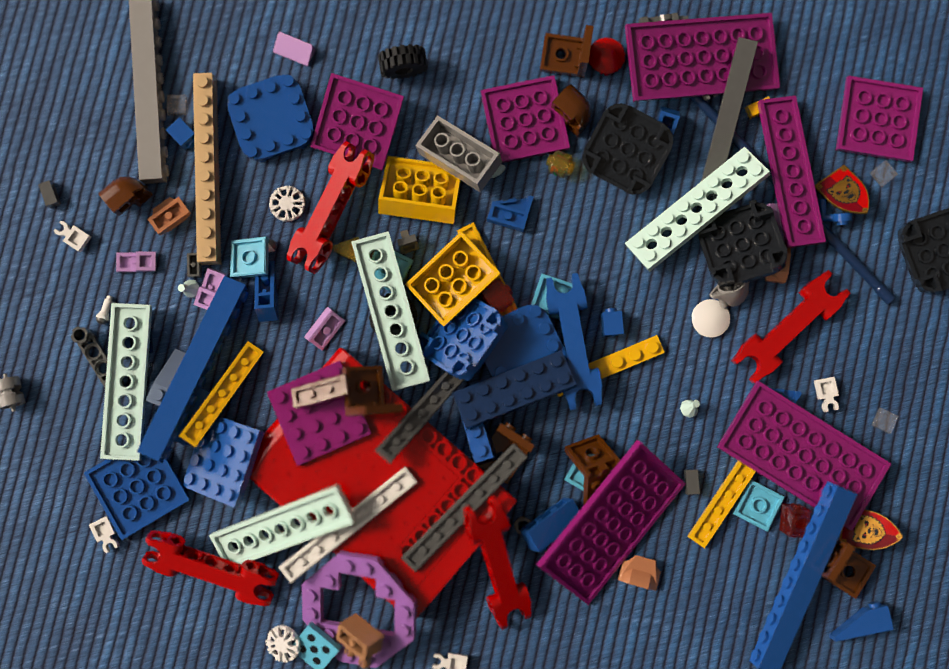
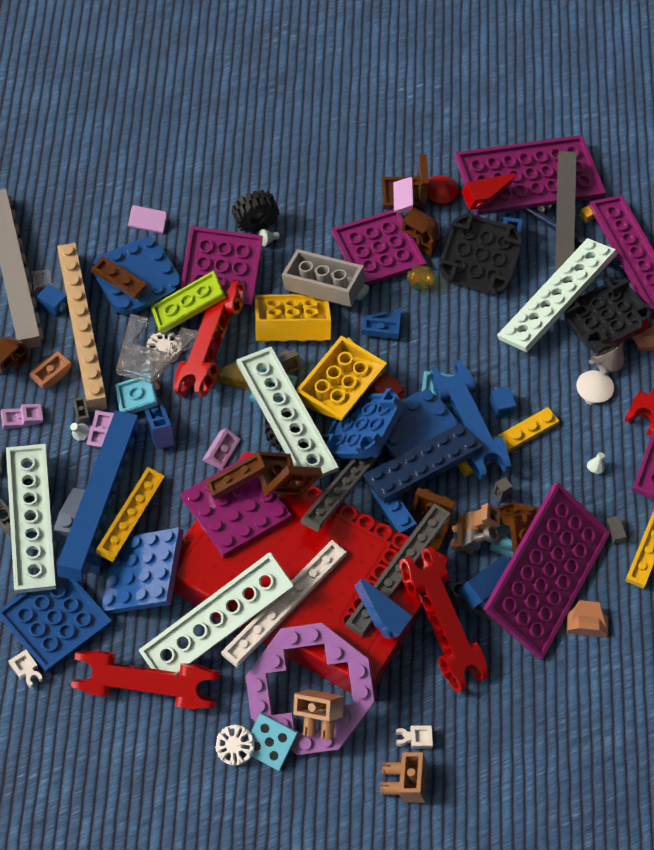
camera: 15 degrees left, 25 degrees down
(249, 123) = (119, 277): none -> reddish brown plate
(260, 224) = (144, 362): none -> clear wing
(315, 162) = (188, 302): none -> lime tile
(412, 88) = (268, 236): none -> light aqua rock
(441, 561) = (384, 613): none -> blue slope
(546, 466) = (475, 528): none -> medium nougat hips
(562, 62) = (403, 195): none -> lavender slope
(589, 422) = (502, 489): none -> dark grey piece
(642, 81) = (484, 191): none -> red slope

